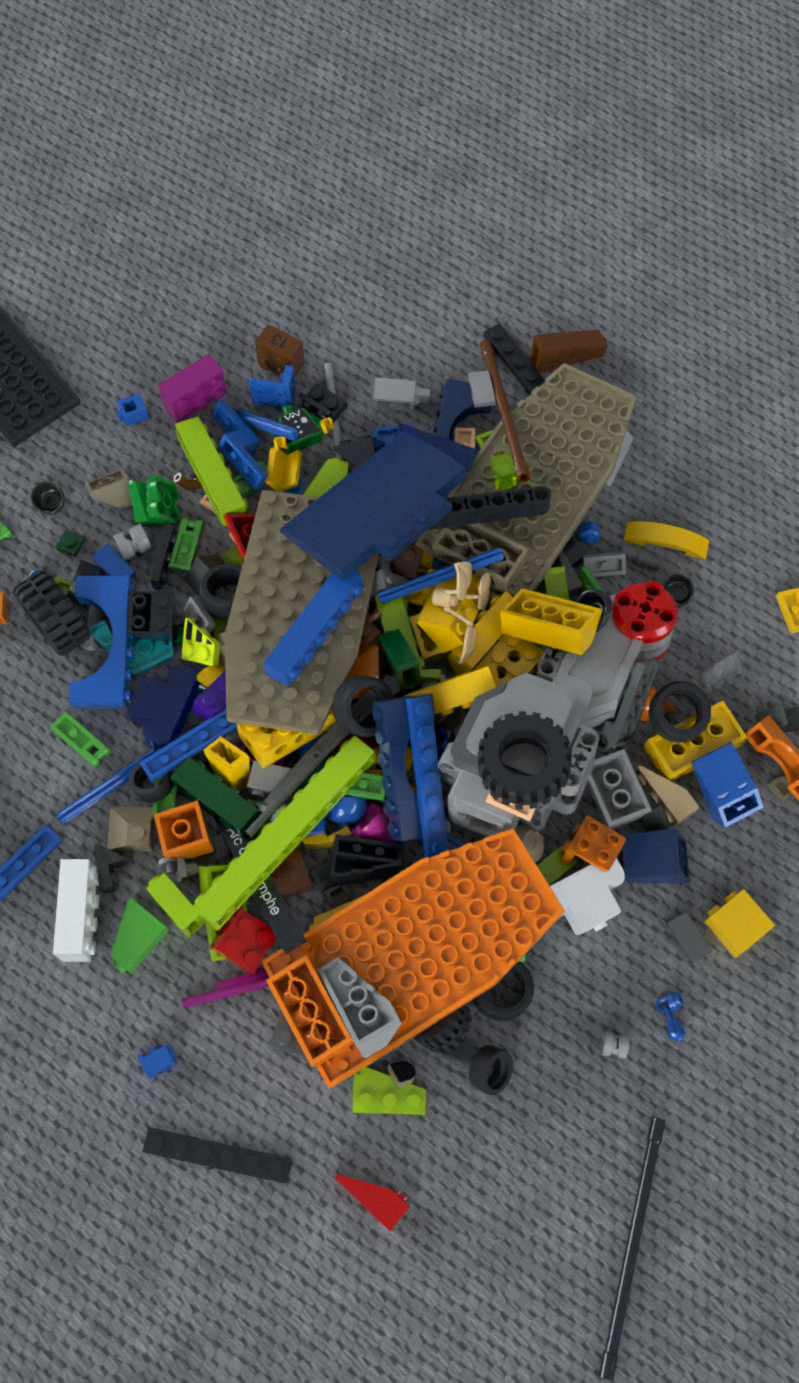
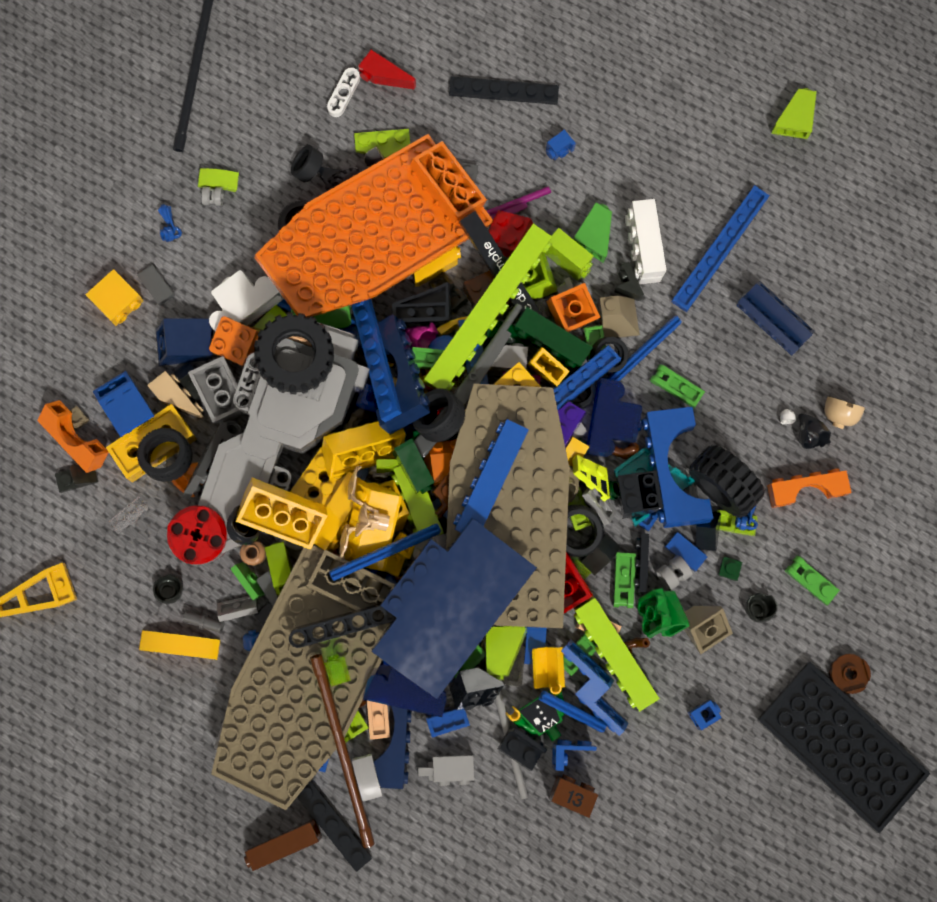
camera: 170 degrees right, 10 degrees up
(157, 673) = (627, 452): none -> reddish brown arm
(192, 388) = (650, 741): magenta brick -> none
(364, 1010) = (410, 179): light grey wedge -> none
(448, 1165) = (343, 84): none -> white beam
(607, 1068) = (218, 178): none -> lime slope

